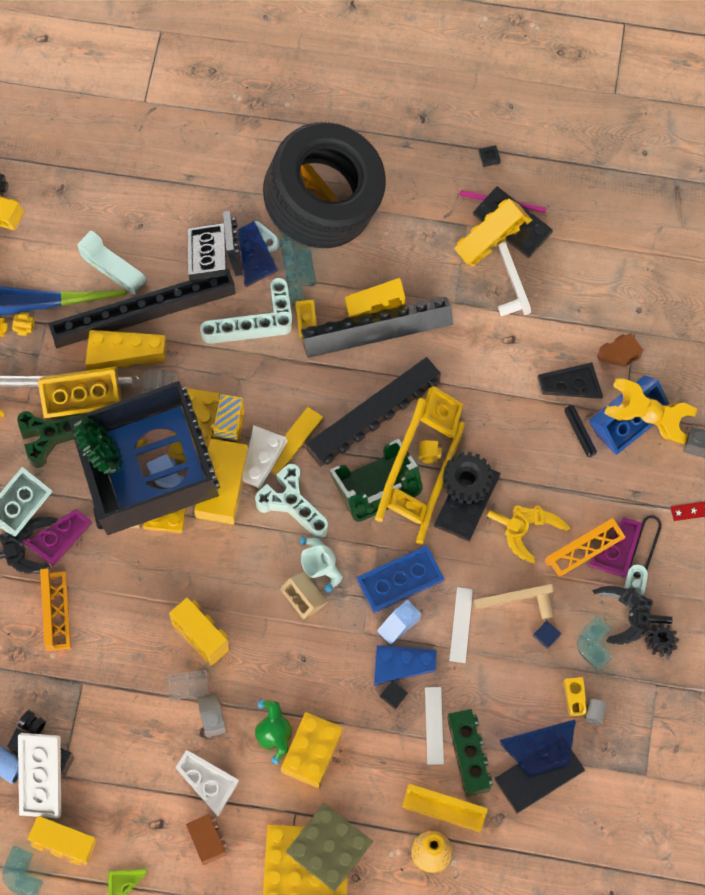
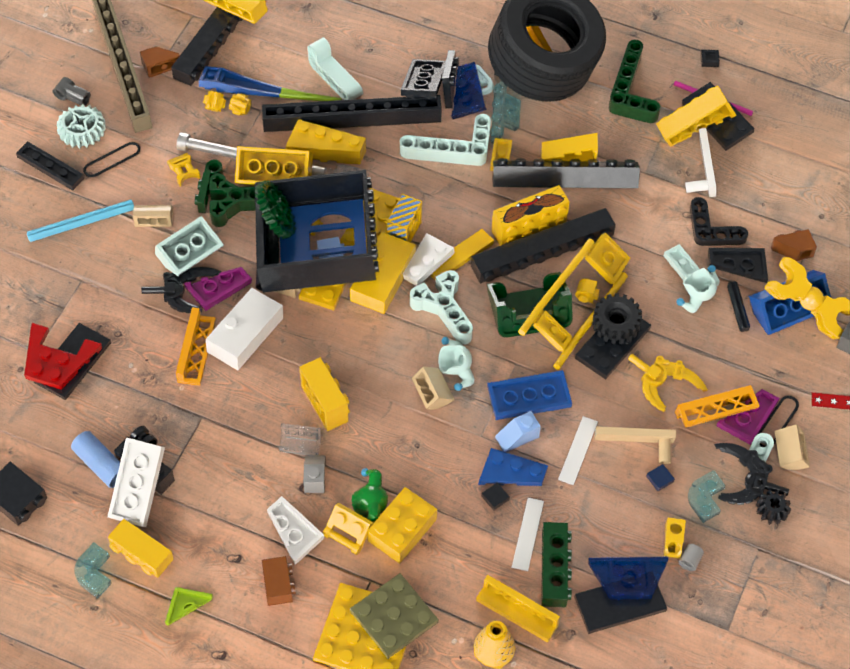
camera: 15 degrees right, 10 degrees down
(12, 426) = (201, 200): none -> dark green plate
(99, 578) = (244, 328): none -> white brick
(261, 762) = (350, 523): none -> yellow plate
(354, 385) = (530, 215): none -> yellow brick
(411, 207) = (624, 103): none -> dark green beam
(515, 397) = (680, 261): none -> light aqua plate
(530, 354) = (706, 229): none -> black beam
(540, 421) = (701, 287): none -> light aqua piece
(665, 572) = (792, 448): none -> tan brick

